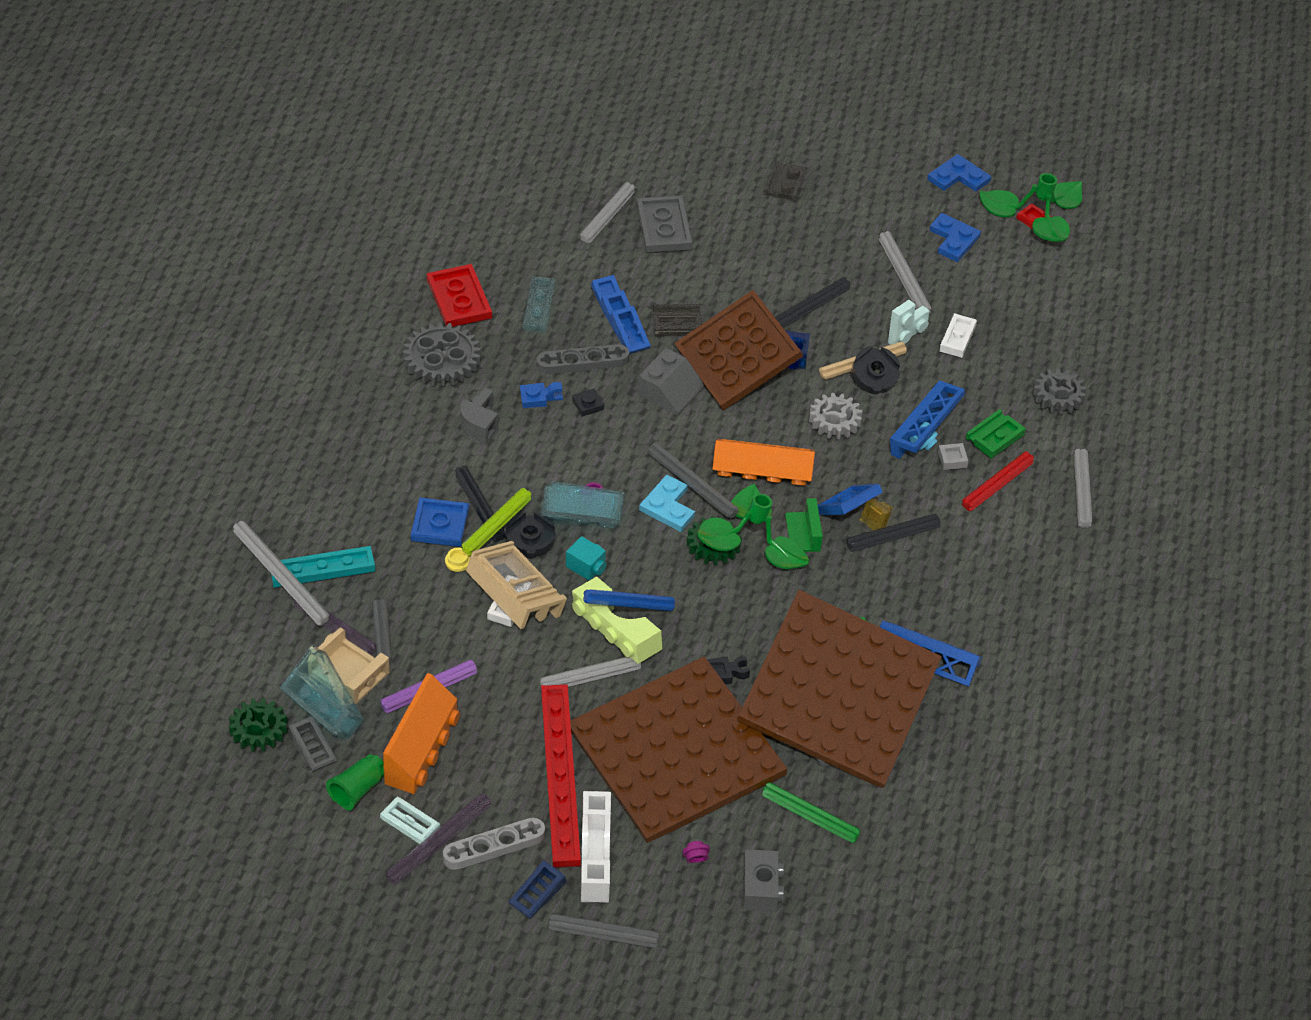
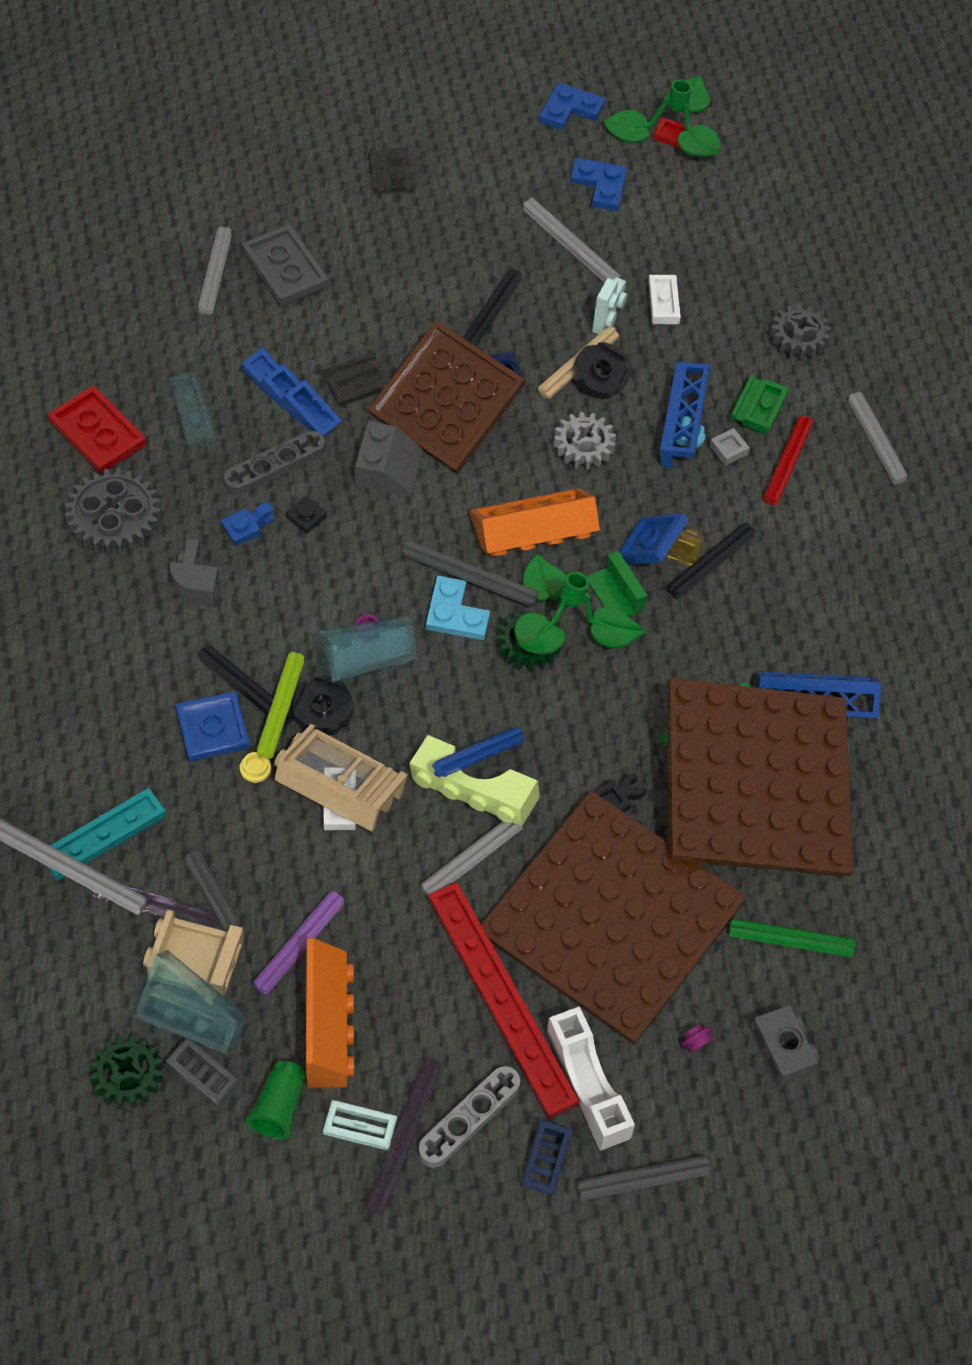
camera: 25 degrees left, 10 degrees up
(586, 558) = (401, 714): teal brick -> none

